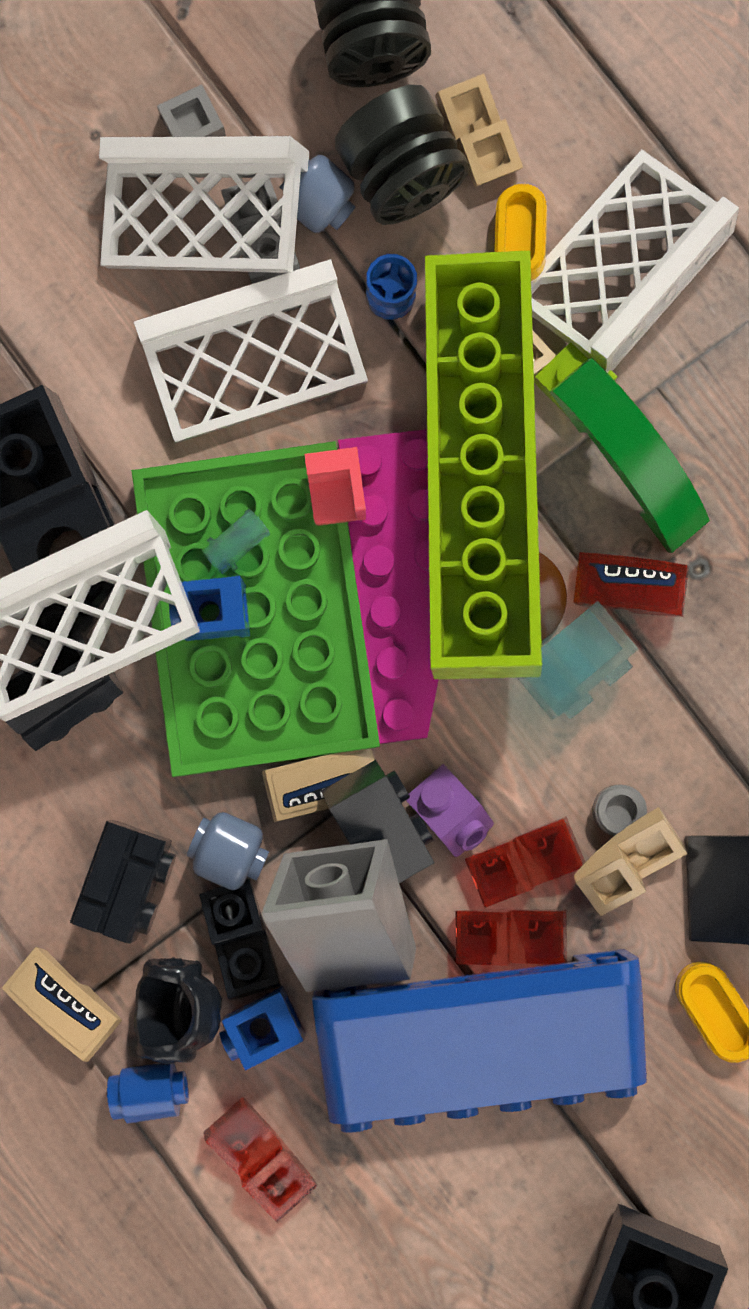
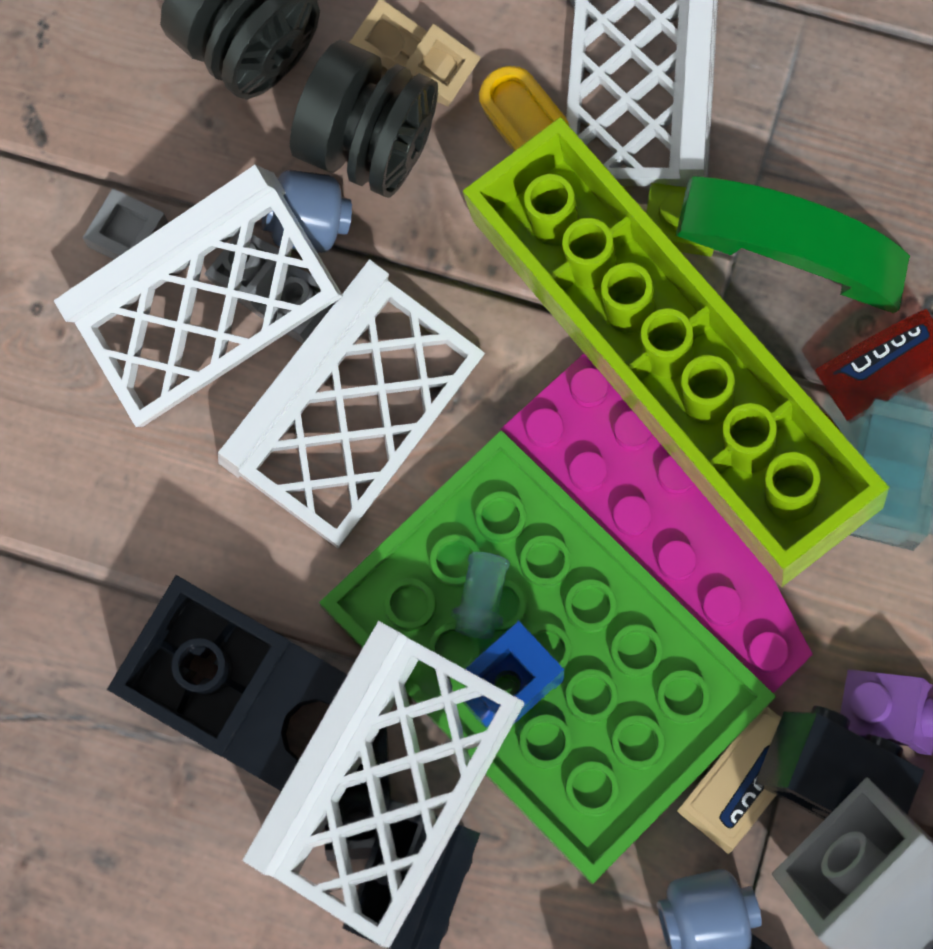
camera: 30 degrees left, 10 degrees down
(335, 486) = (540, 469): coral panel -> none
(391, 274) = (440, 234): blue wheel -> none

